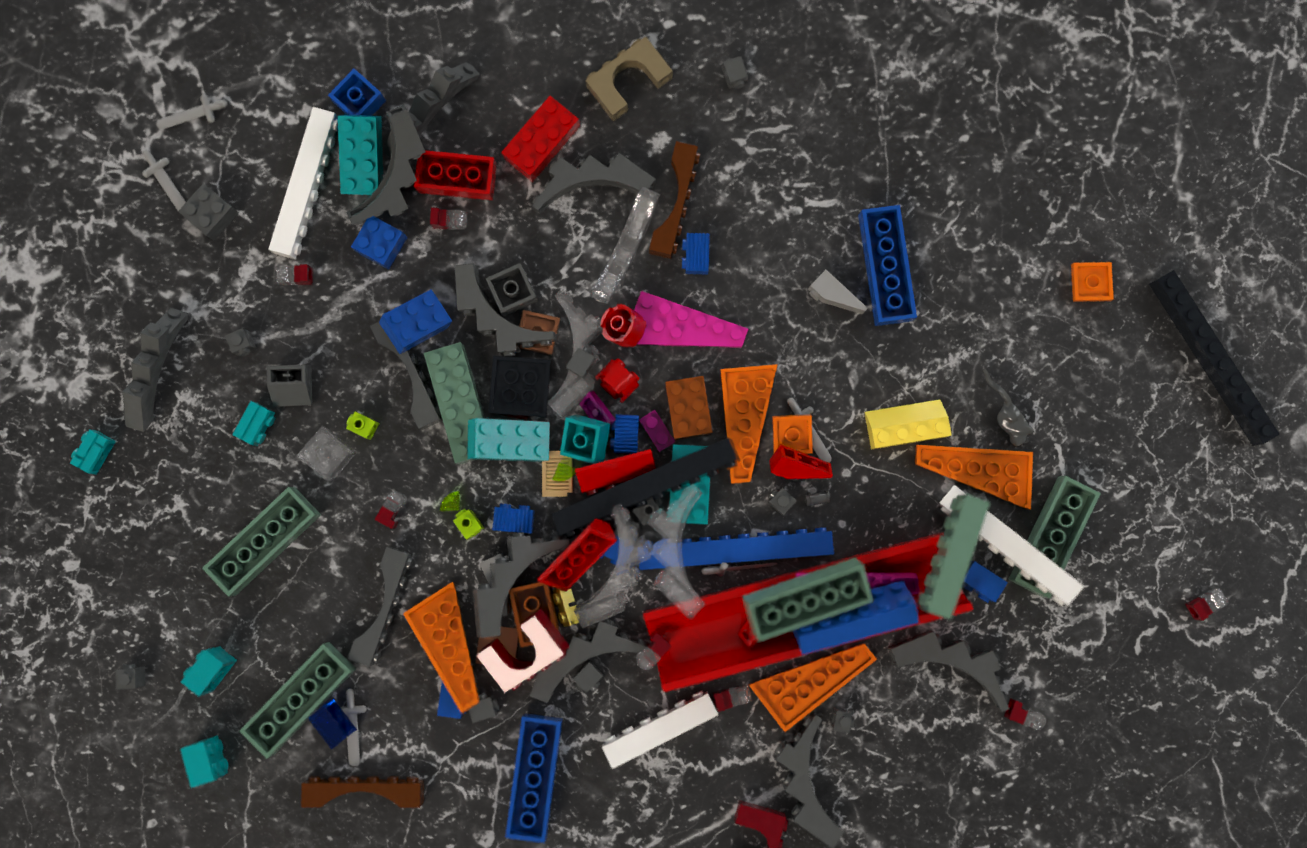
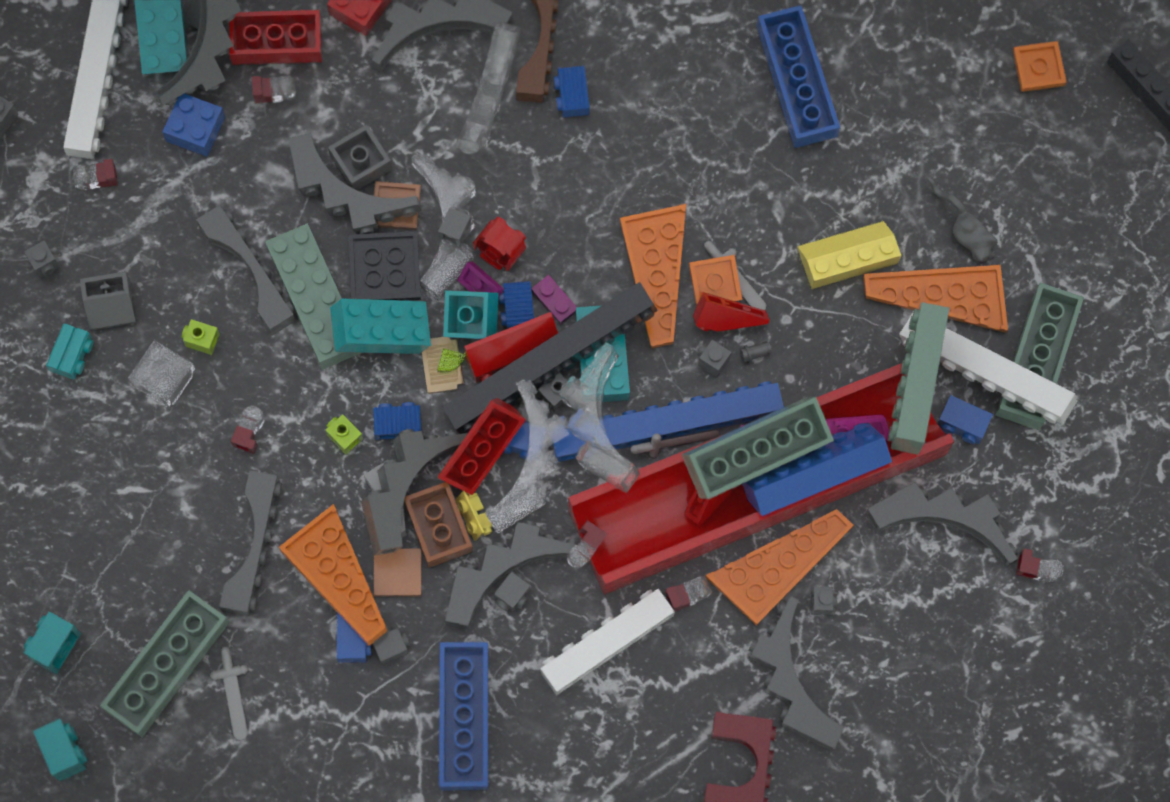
camera: 15 degrees left, 10 degrees down
(261, 541) = (97, 484): sand green brick -> none
(332, 723) = (209, 688): clear blue brick -> none
(403, 793) = (206, 772): reddish brown arch -> none
(415, 321) = (250, 207): blue brick -> none
(451, 502) = (318, 413): clear neon green tile -> none
(511, 672) = (418, 595): arch -> none
(623, 326) = (498, 181): red brick -> none
(681, 326) = (556, 176): dark pink wing -> none
(688, 408) = (588, 266): dark orange brick -> none
(832, 292) = (740, 116): light grey slope -> none

